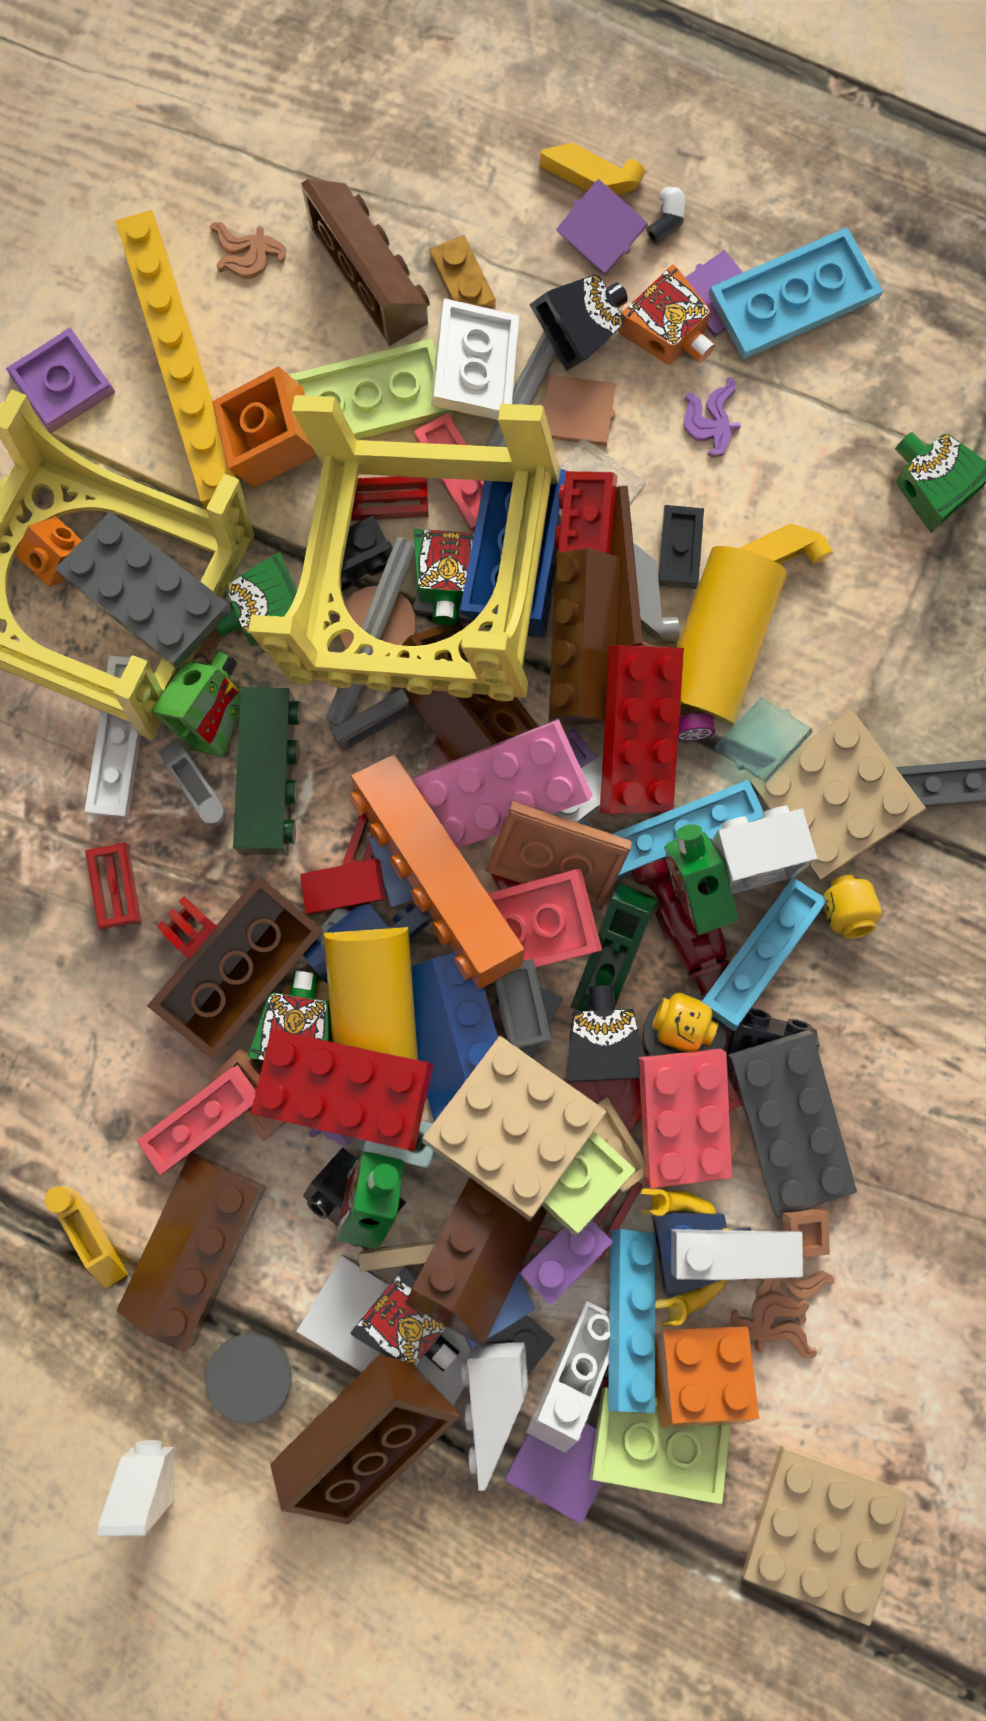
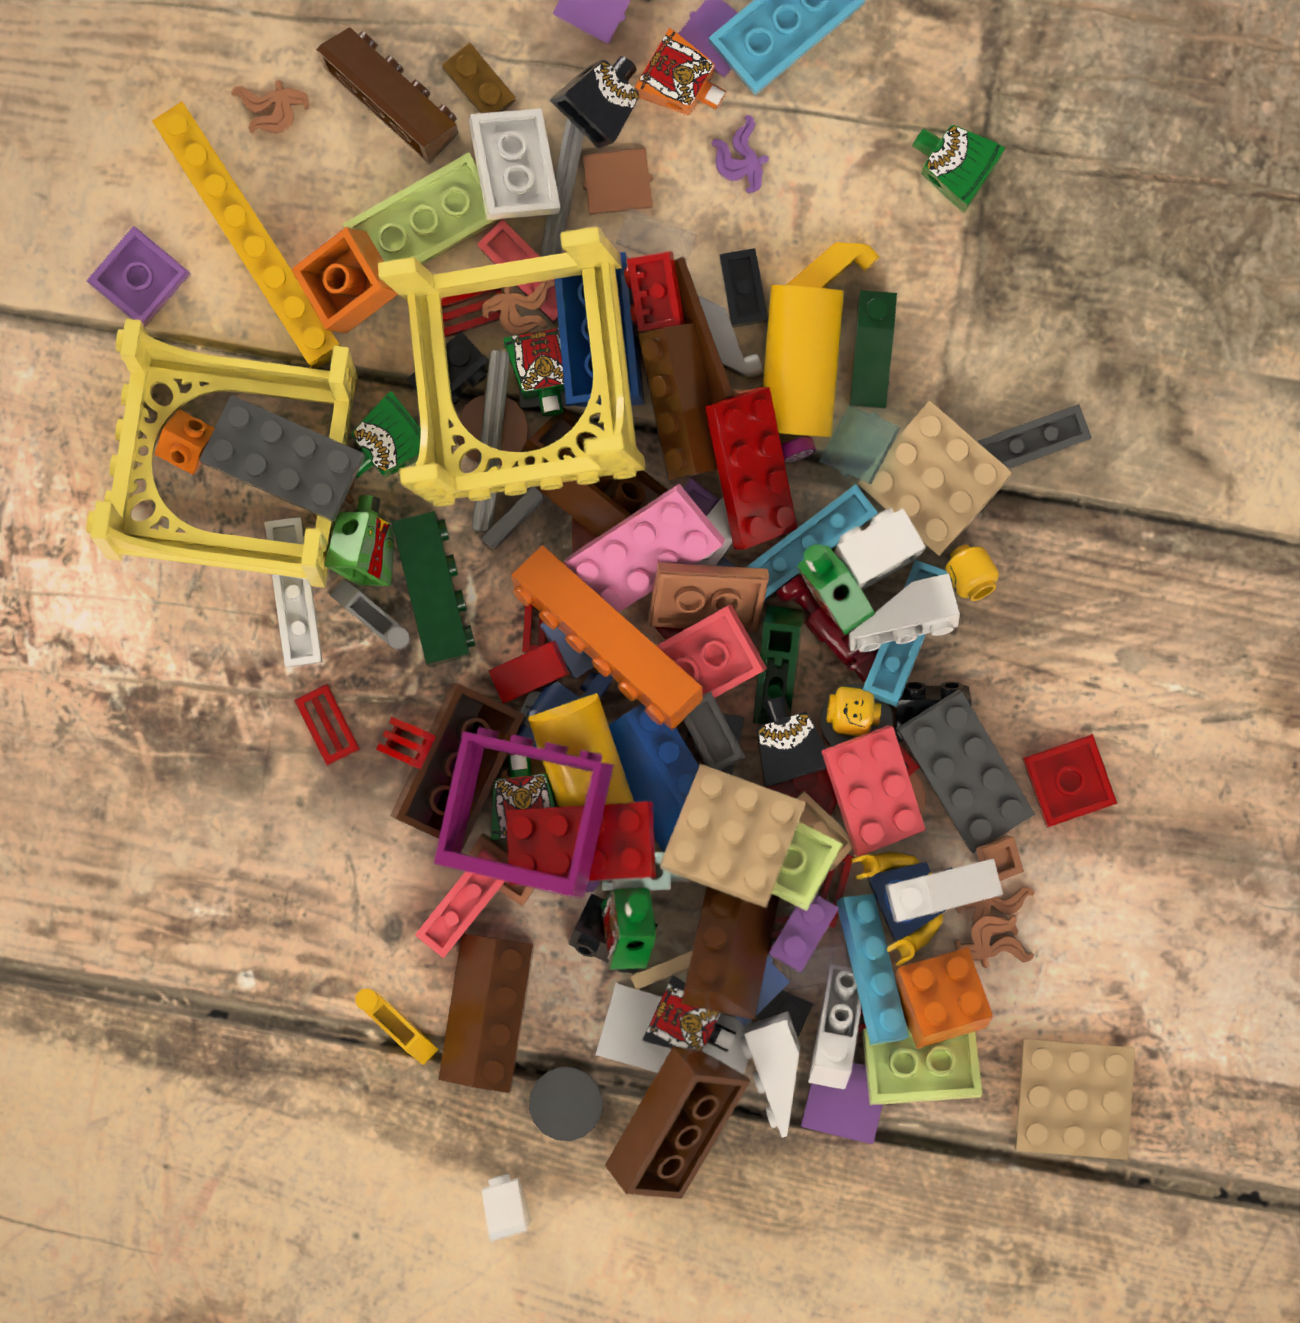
camera: 15 degrees left, 5 degrees up
(222, 1006) = (461, 798): none -> magenta window
(428, 497) = (510, 317): none -> nougat piece
(784, 930) = (916, 610): none -> white slope
(802, 642) = (872, 348): none -> dark green slope
(904, 1165) = (1069, 780): none -> red tile

